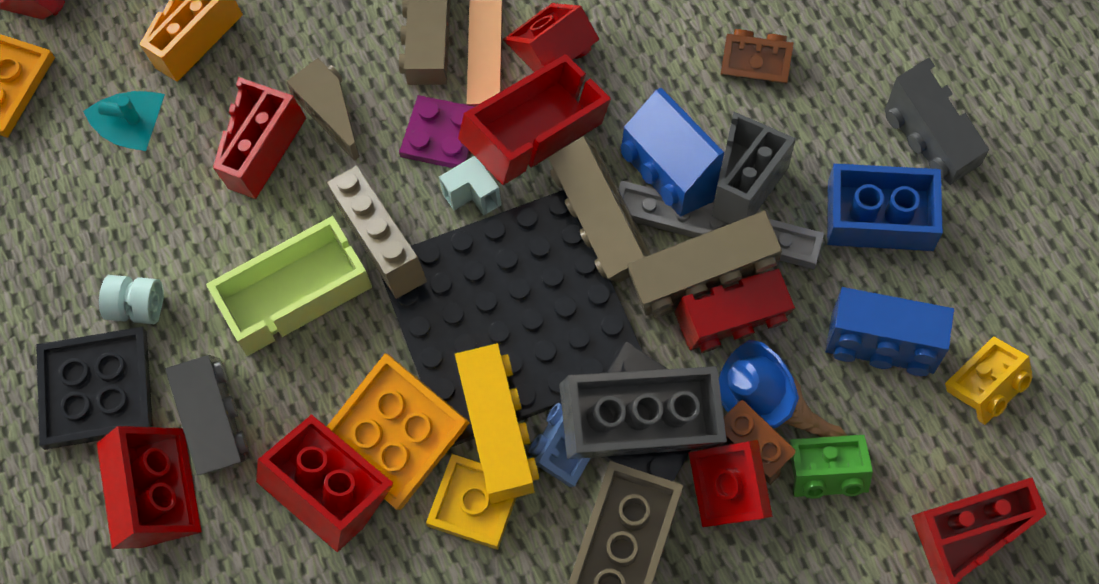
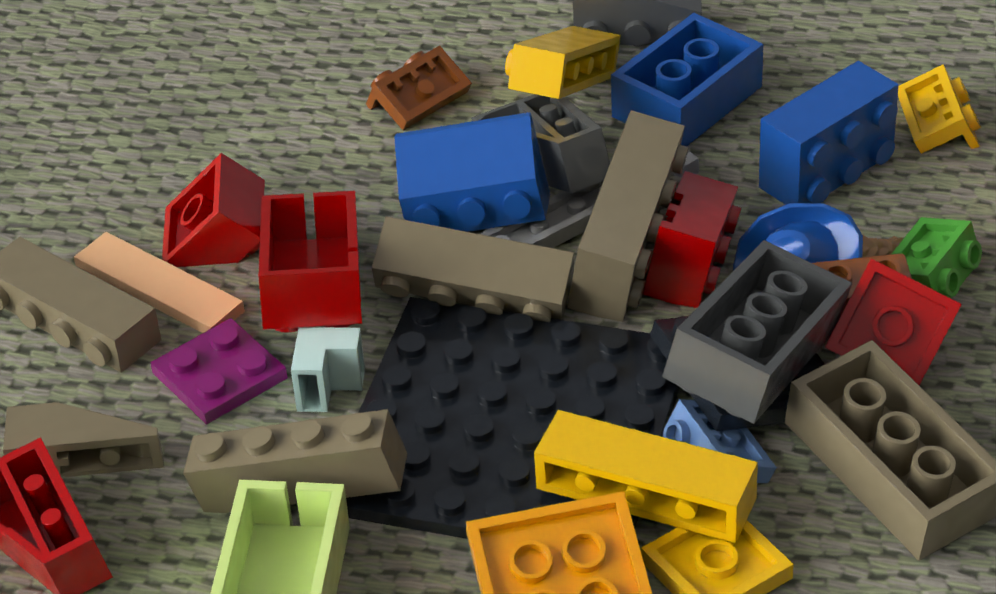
camera: 55 degrees left, 25 degrees down
(823, 127) = (562, 61): none -> yellow brick

